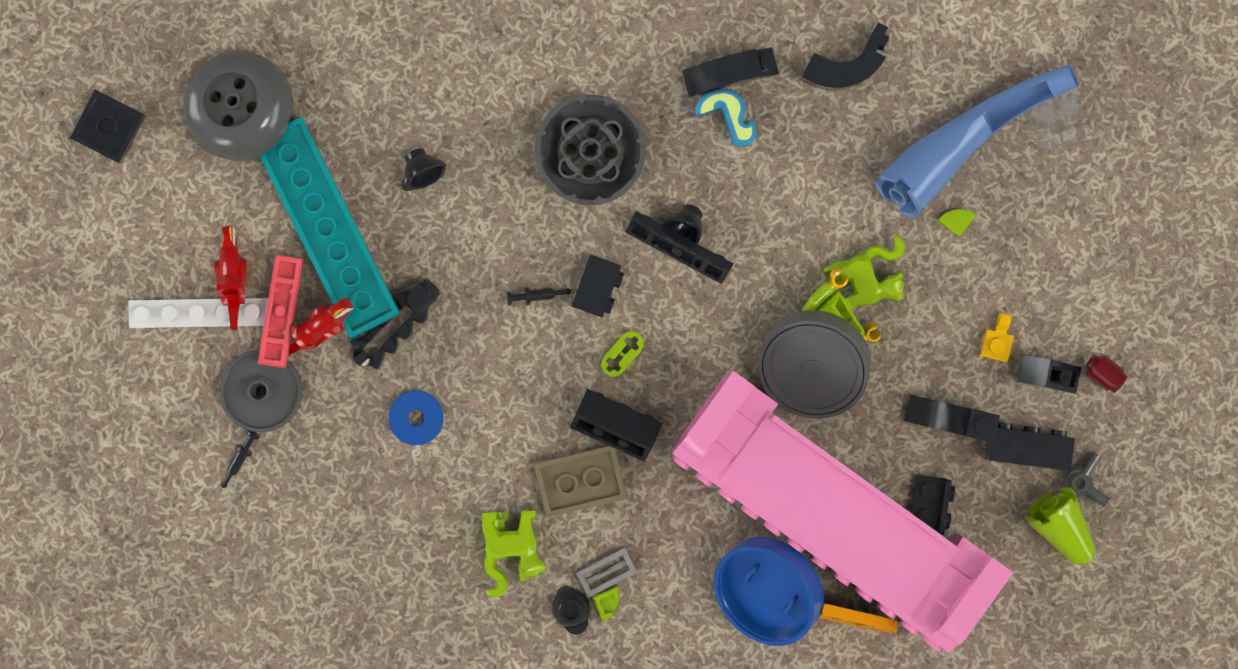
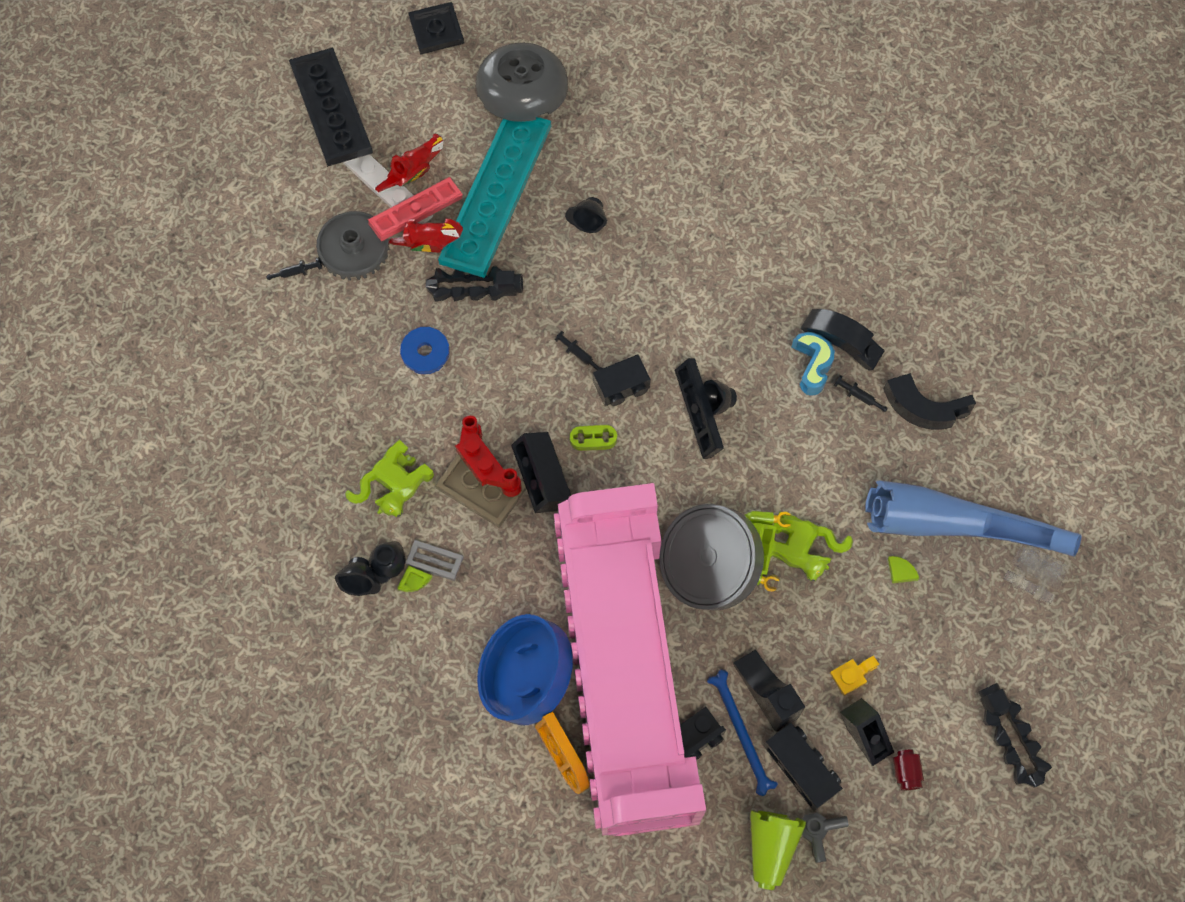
camera: 45 degrees right, 20 degrees down
(107, 293) = (330, 107): none -> black plate
(563, 465) = (482, 462): none -> red plate
(566, 645) = (357, 578): none -> black piece
(568, 125) = (706, 270): dark grey brick -> none
(786, 105) = (859, 393): none -> black piece
(1010, 485) = (763, 781): none -> blue piece
(1125, 257) = (997, 704): none -> black sword

